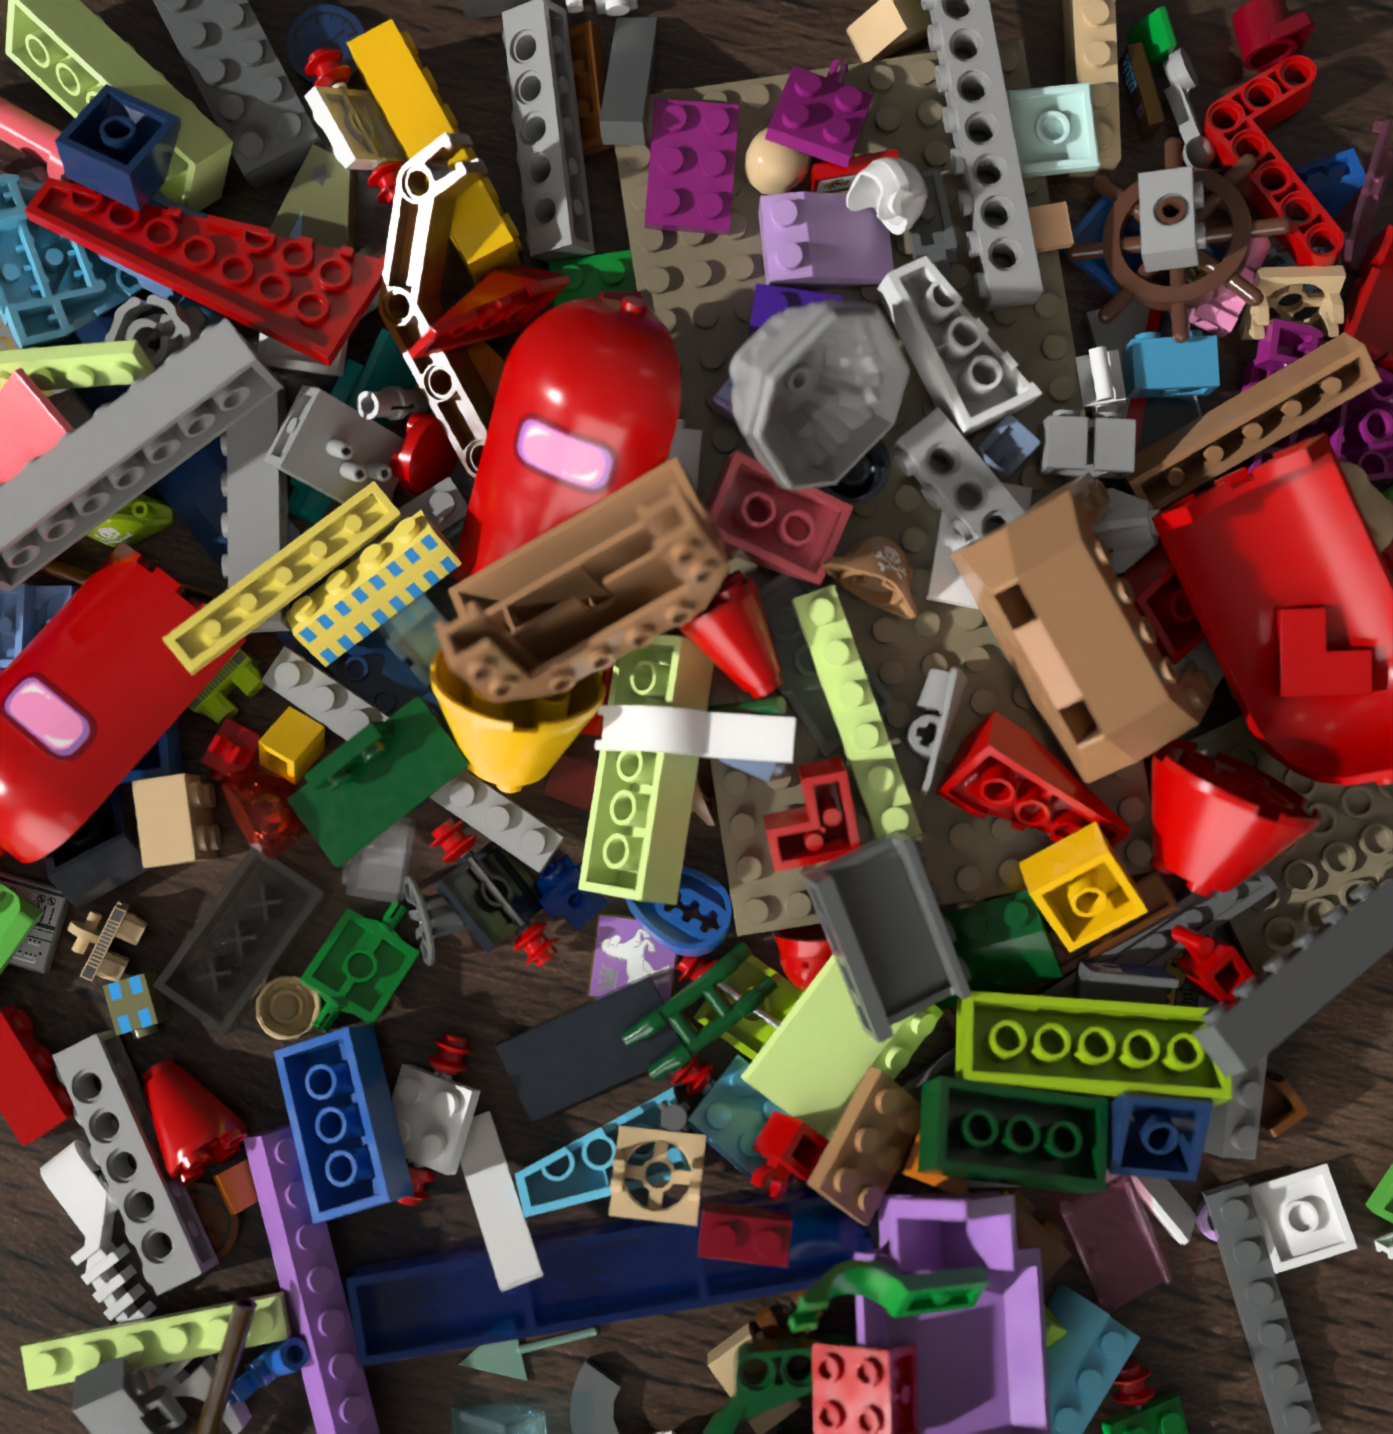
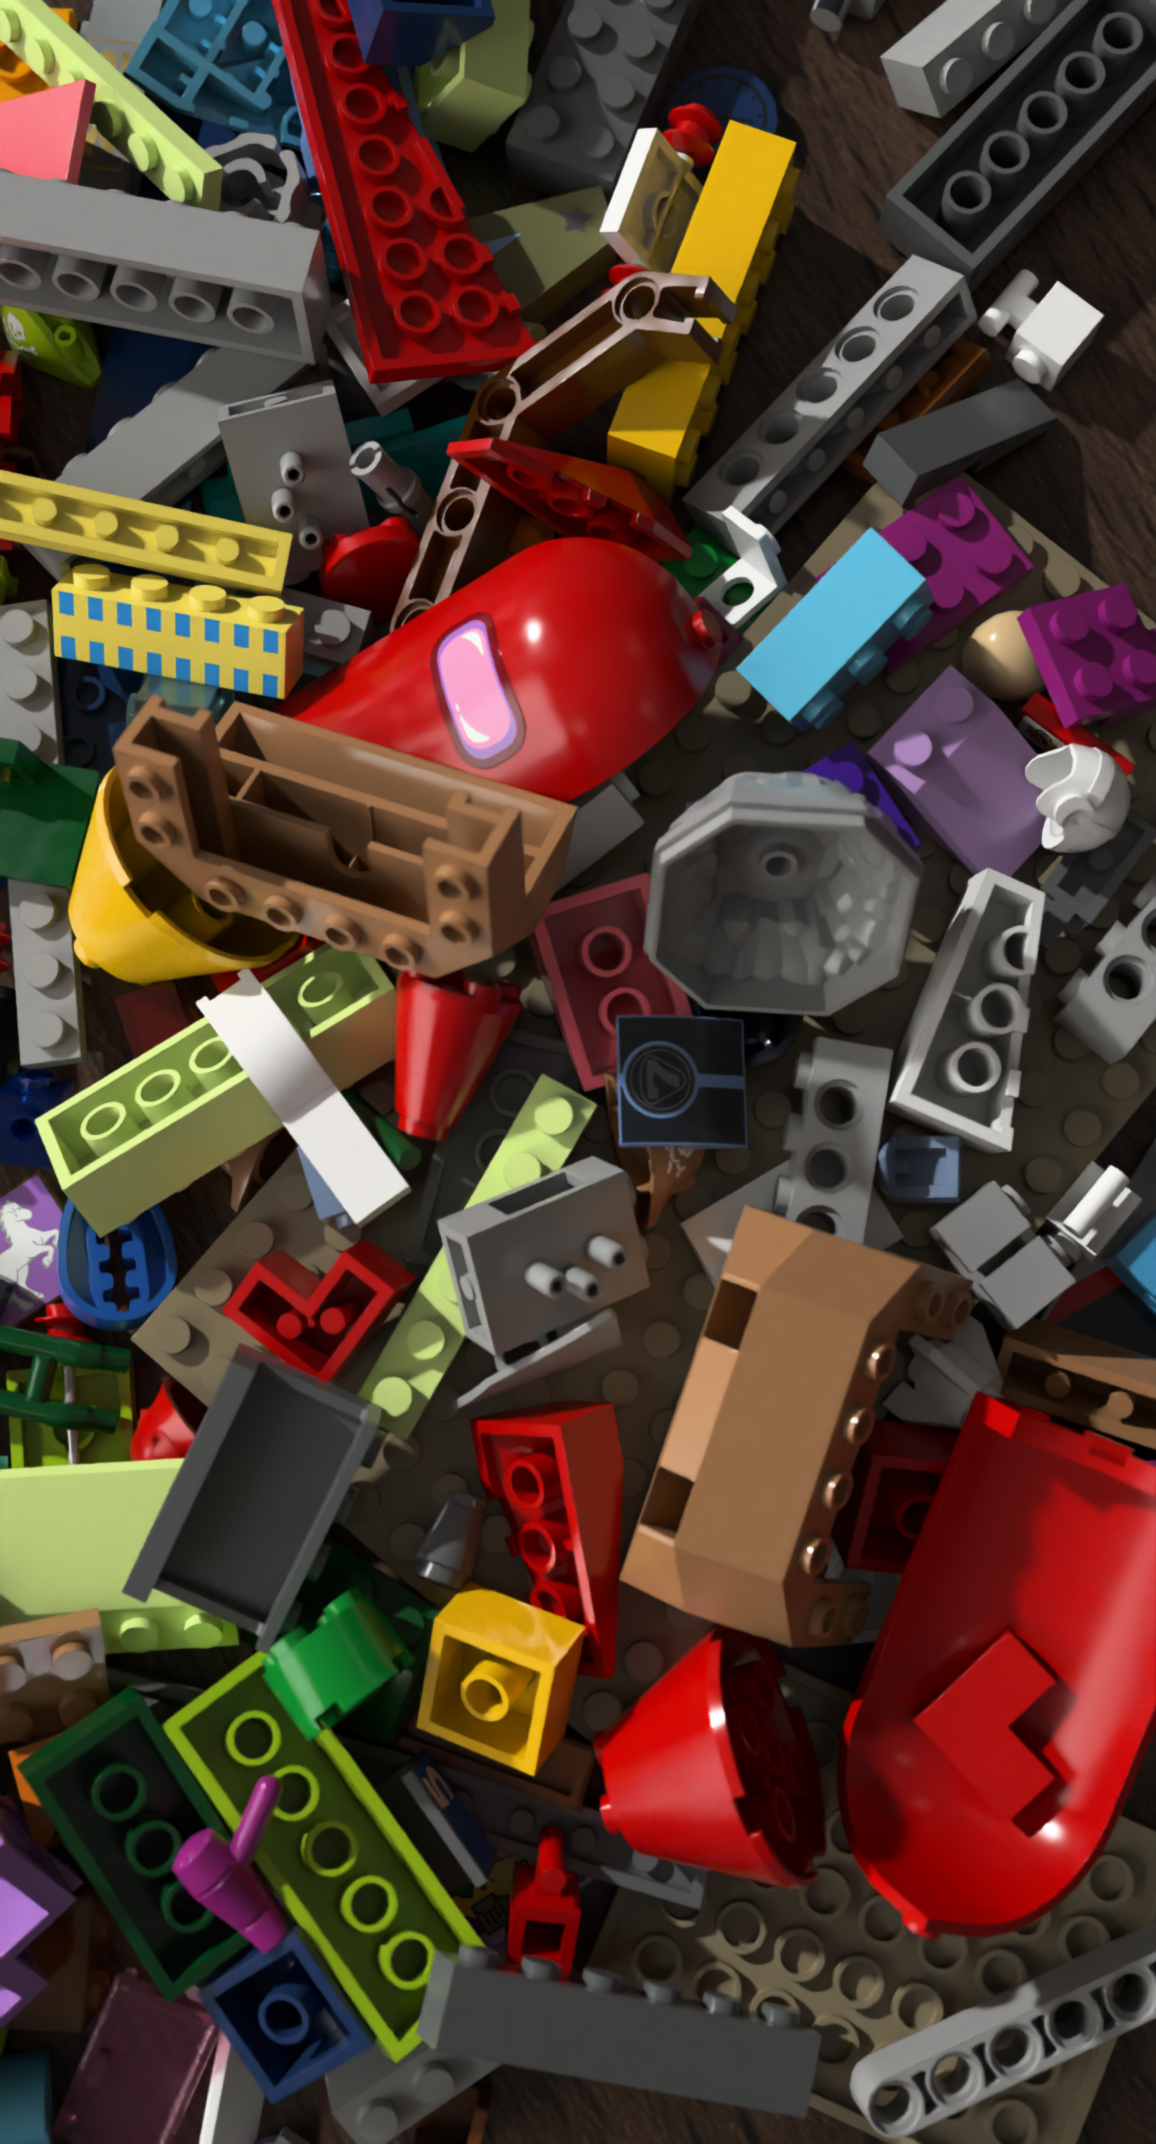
camera: 55 degrees right, 5 degrees down
(603, 249) = (757, 567): none -> white bracket
(695, 238) = (839, 633): none -> medium azure brick
(862, 530) = (681, 1082): none -> black slope
(890, 678) = (545, 1254): none -> light grey piece
(991, 855) = (452, 1542): none -> dark grey cone
(1011, 962) = (335, 1665): none -> green brick
(1068, 1109) = (222, 1873): none -> magenta piece

